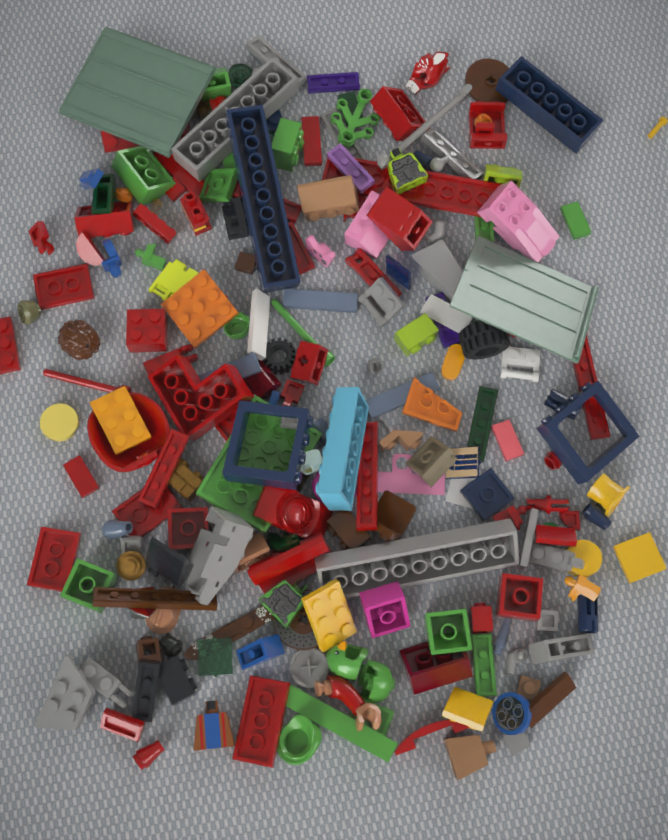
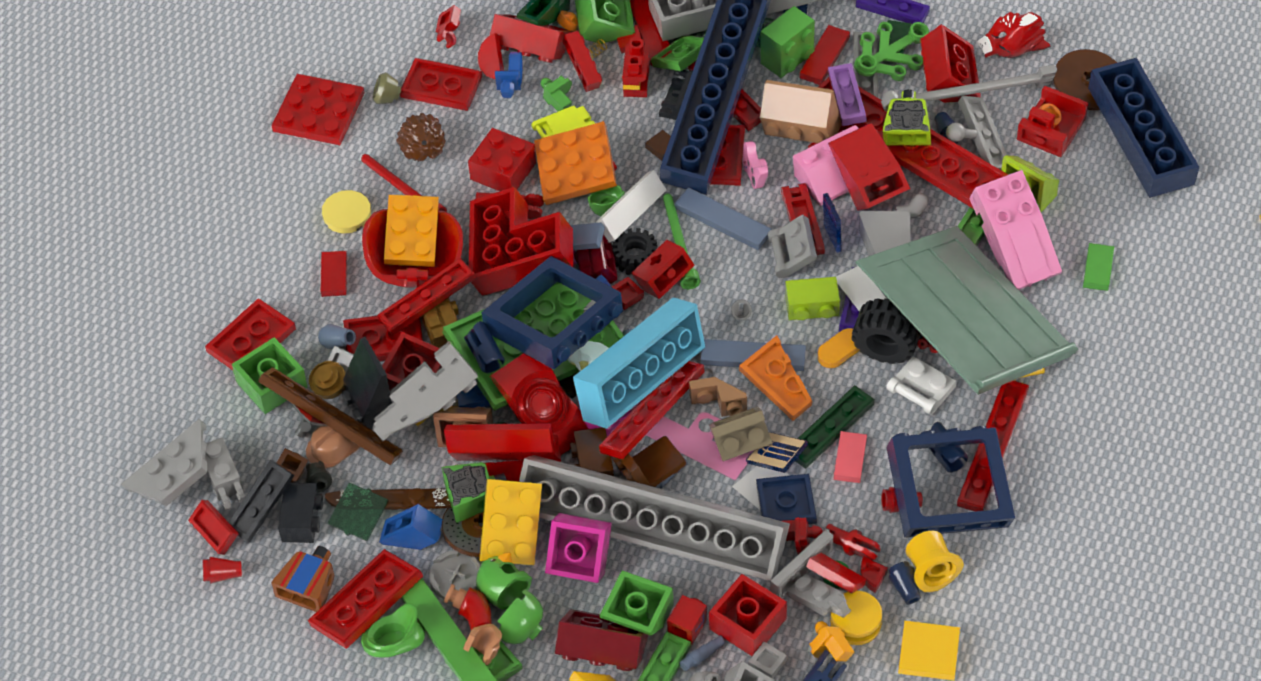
camera: 35 degrees right, 20 degrees down
(235, 495) = (484, 348): none -> dark blue arm

